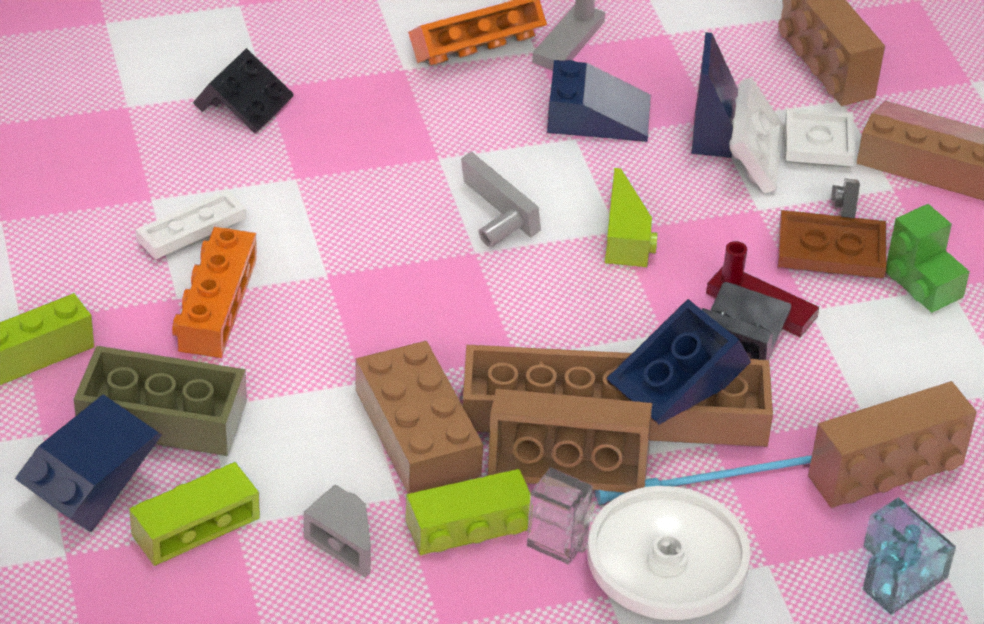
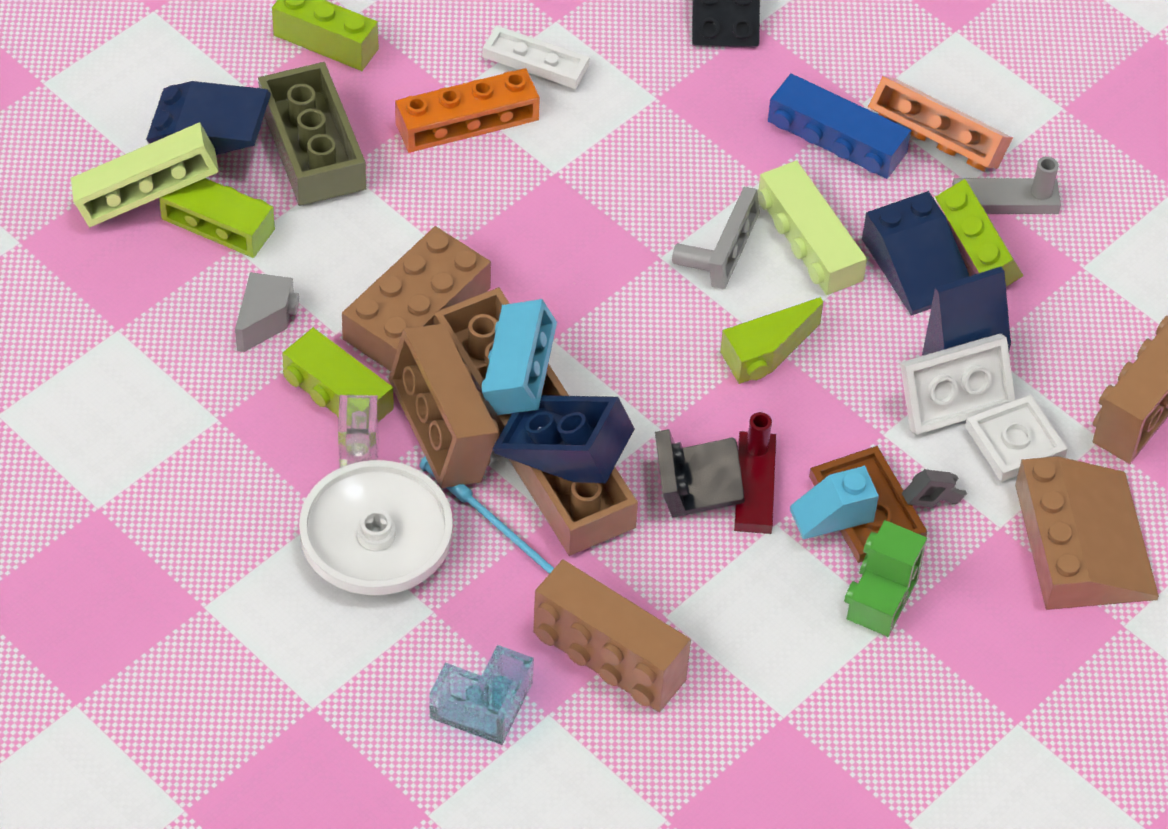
camera: 60 degrees right, 10 degrees up
(121, 535) = (144, 175): none -> yellowish green brick
(427, 85) = (839, 126): none -> blue brick
(527, 146) = (811, 228): none -> yellowish green brick
(576, 353) = (519, 357): none -> medium azure brick
(625, 58) = (977, 231): none -> lime brick
(839, 250) = (836, 503): none -> medium azure slope

